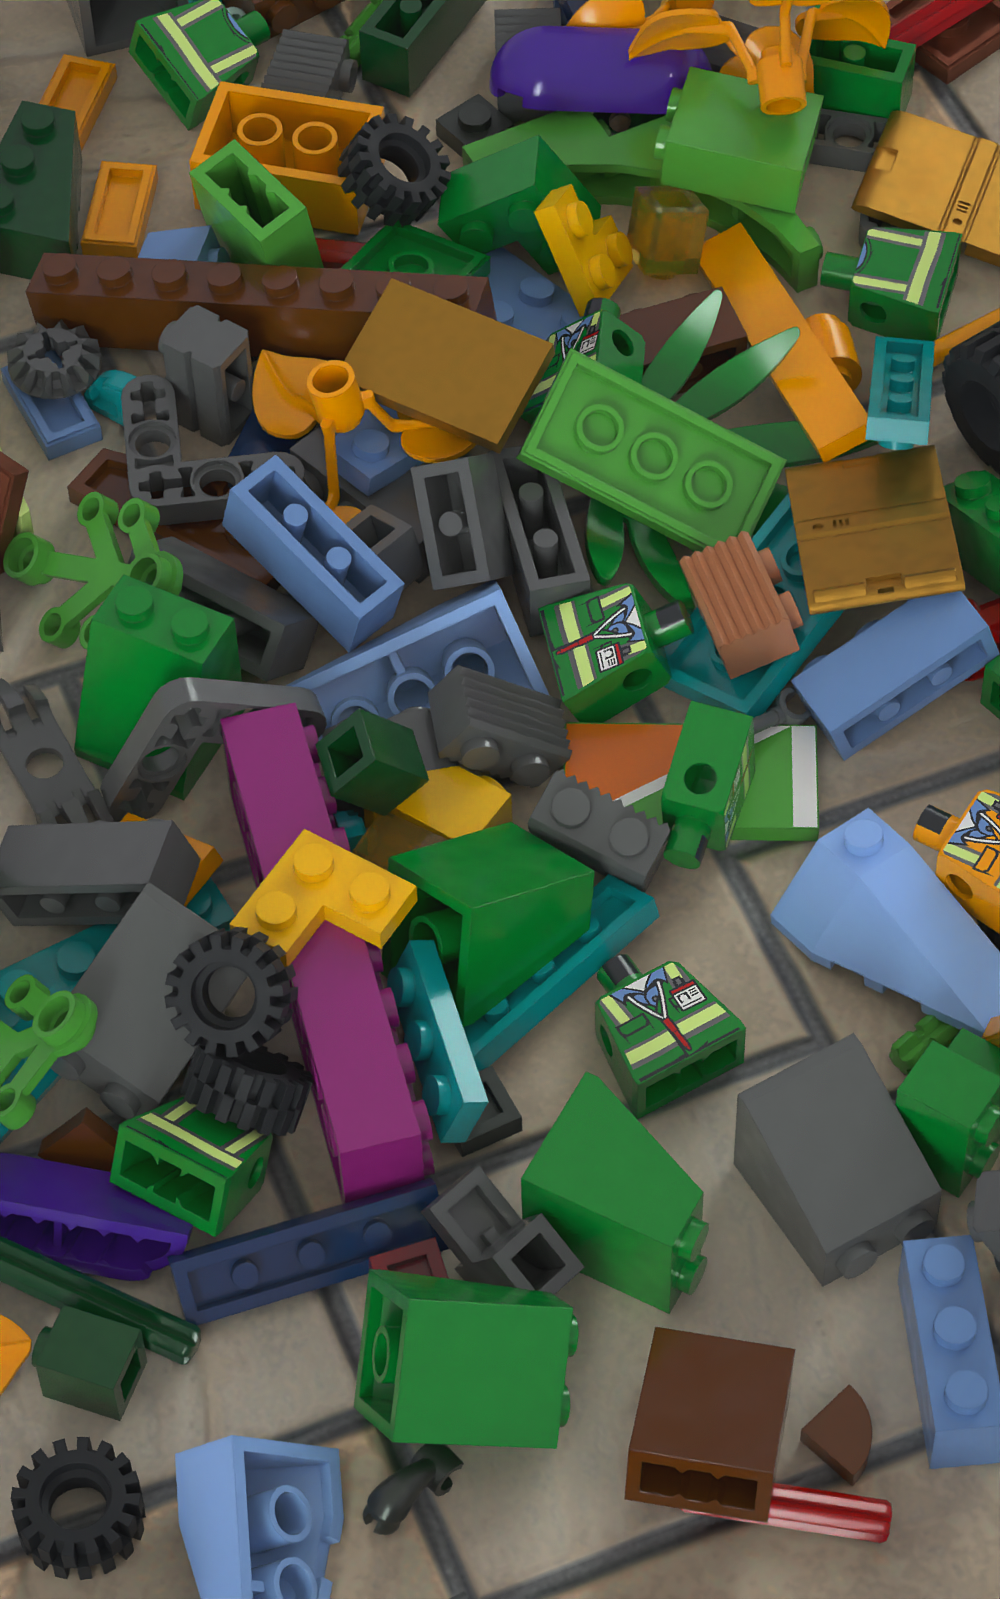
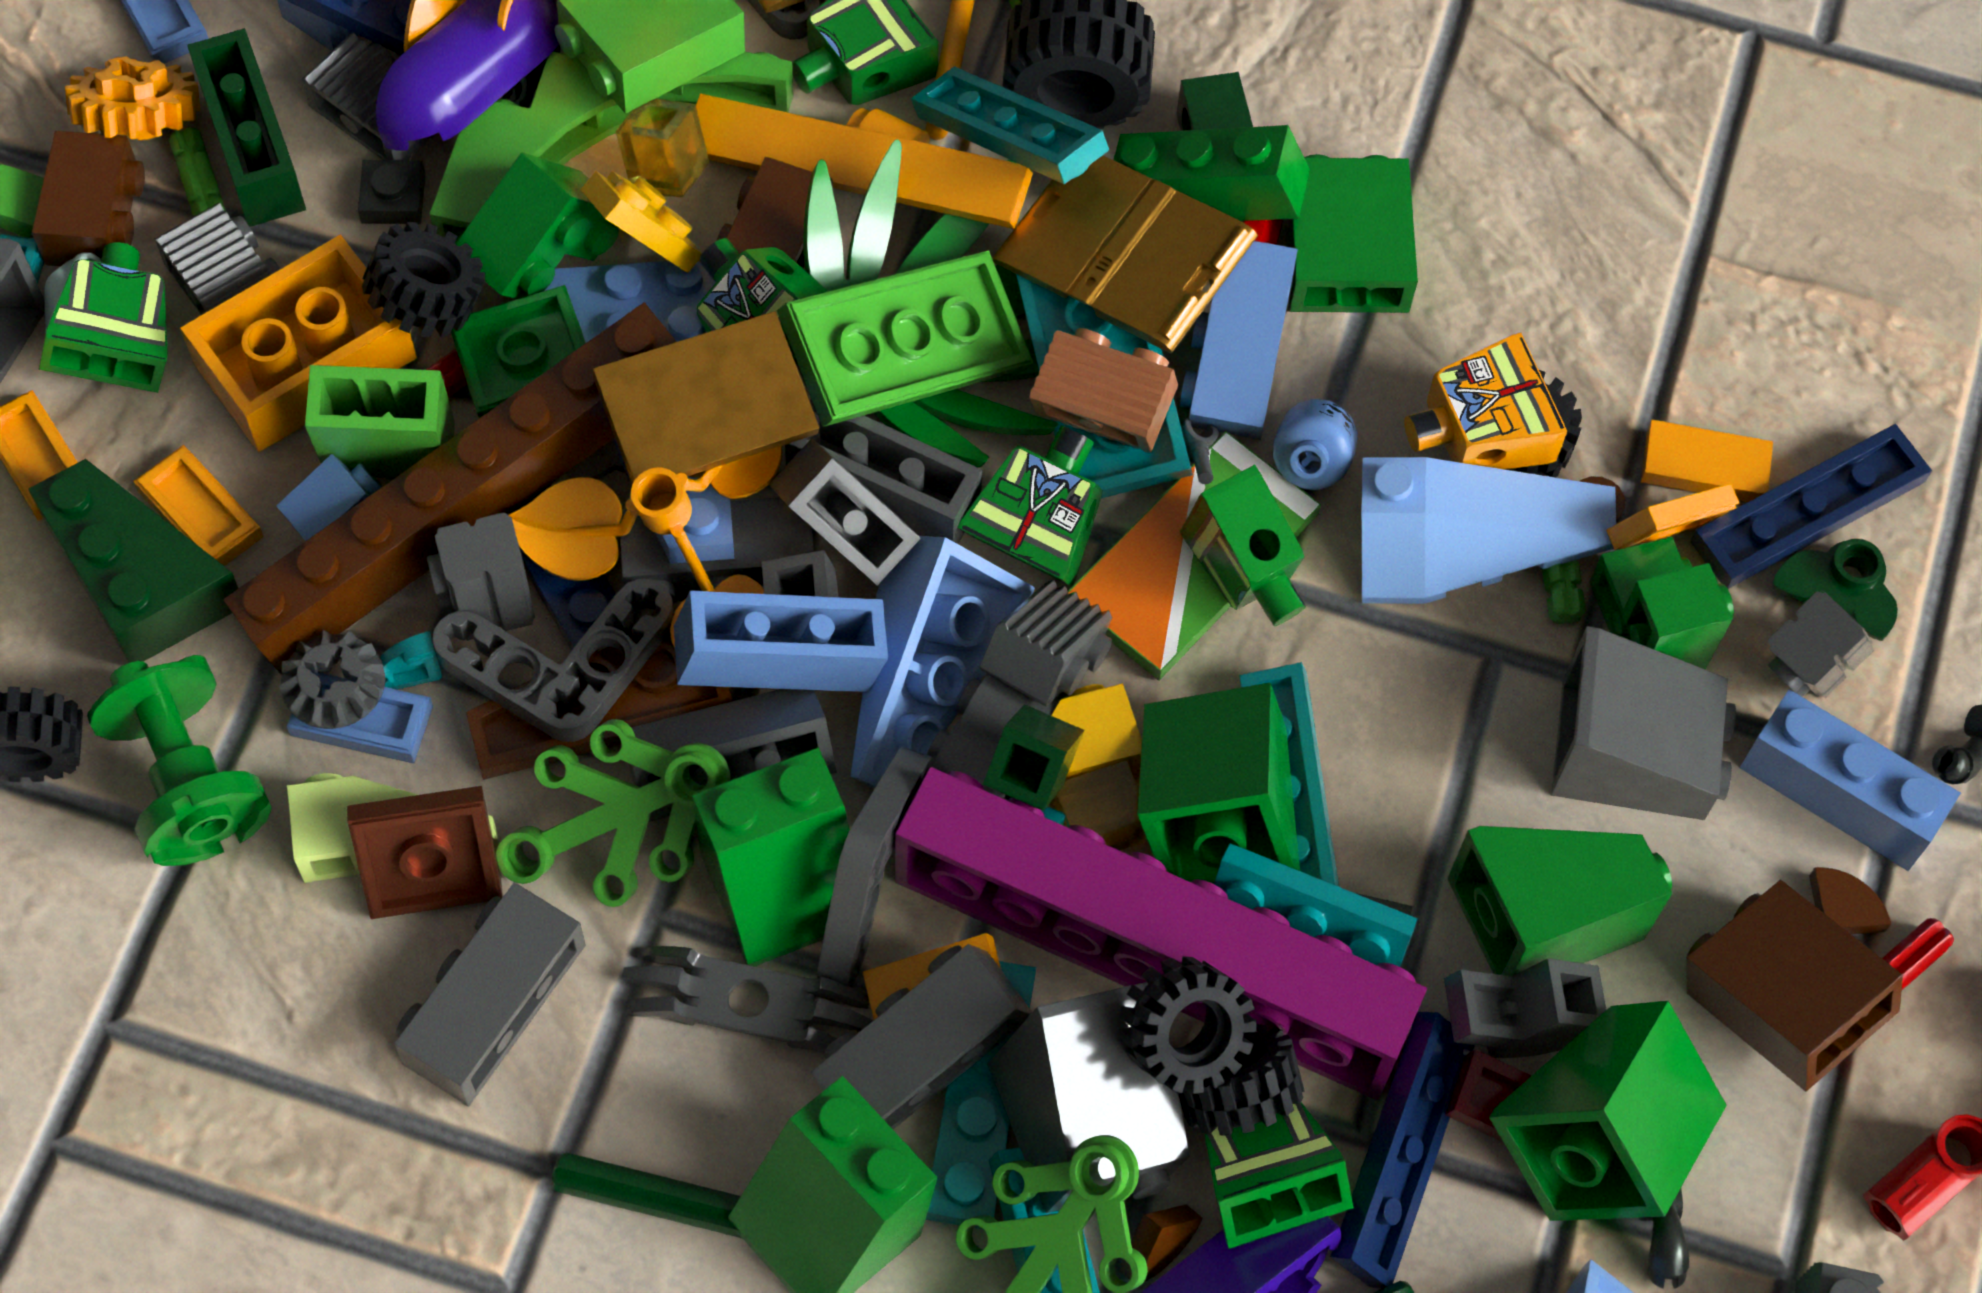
camera: 55 degrees left, 10 degrees up
(325, 883) = (1138, 883): yellow plate -> none
(599, 831) = (1209, 650): dark grey brick -> none
(663, 1032) = (1413, 753): torso -> none
(858, 777) = (1315, 444): none -> medium blue head

